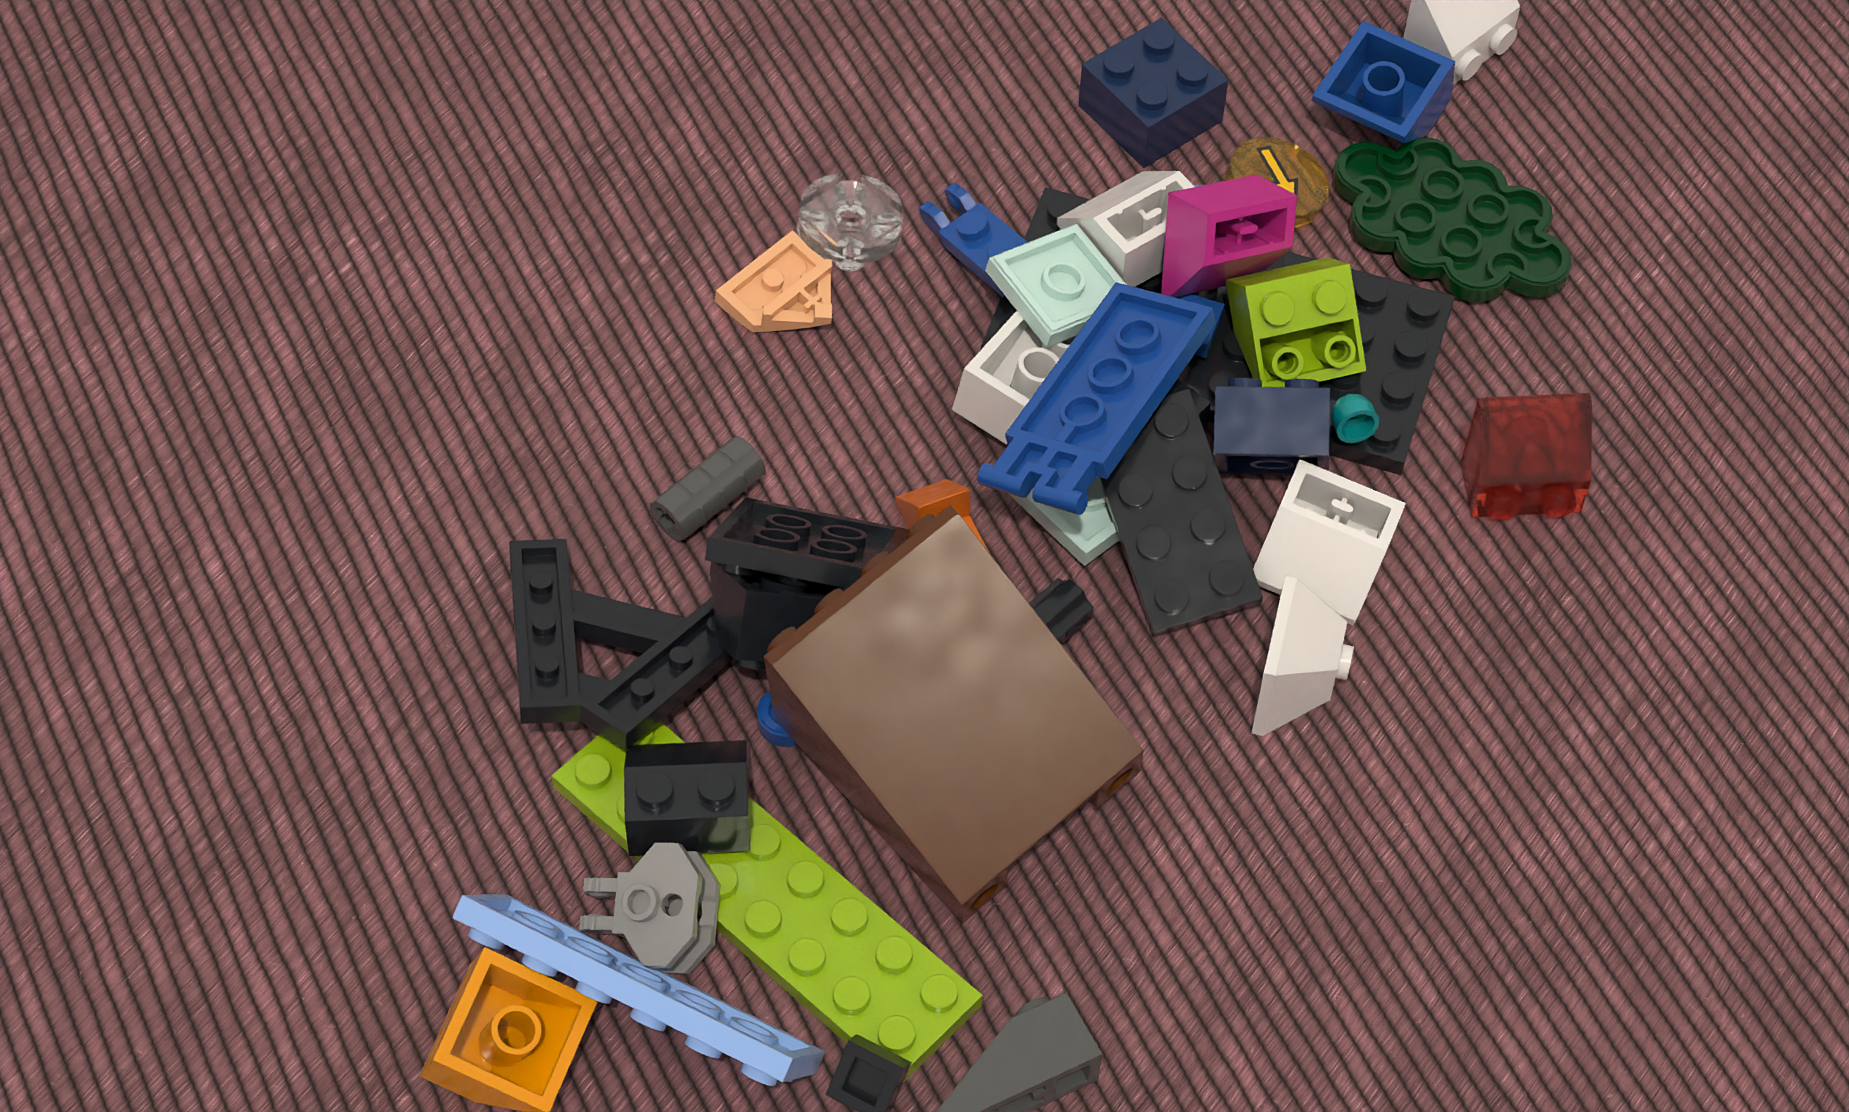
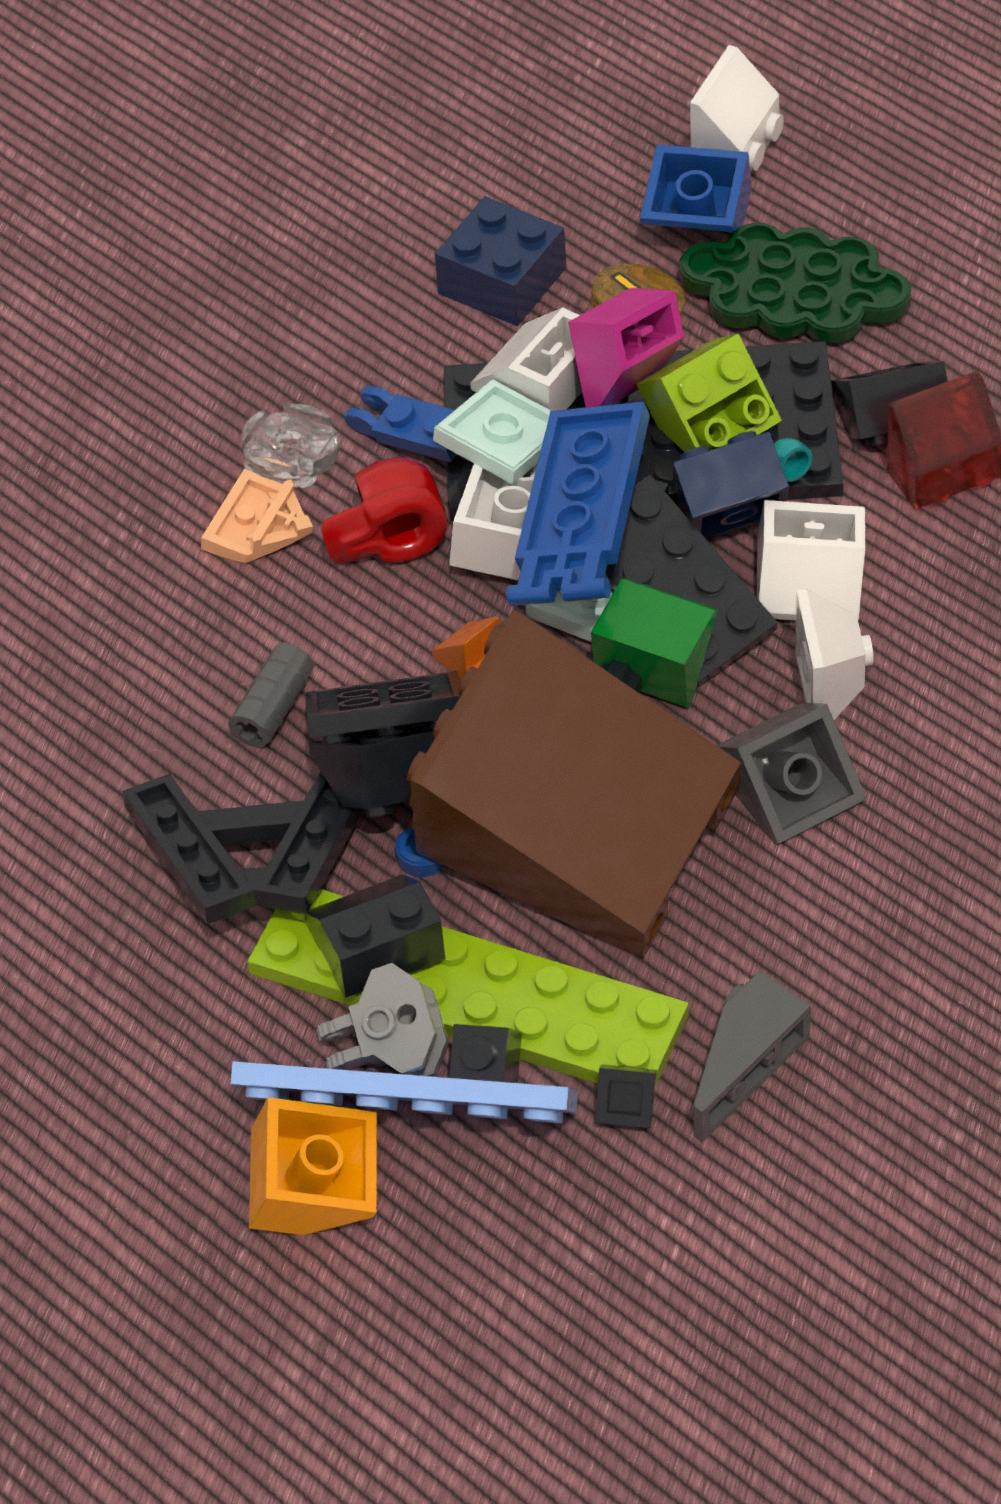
camera: 15 degrees left, 5 degrees down
(739, 979) = (485, 1053): none -> black brick
(919, 337) = (397, 516): none -> red piece
(1123, 569) = (657, 637): none -> green slope
(1206, 771) = (794, 771): none -> dark grey slope
(1489, 371) = (866, 396): none -> black slope

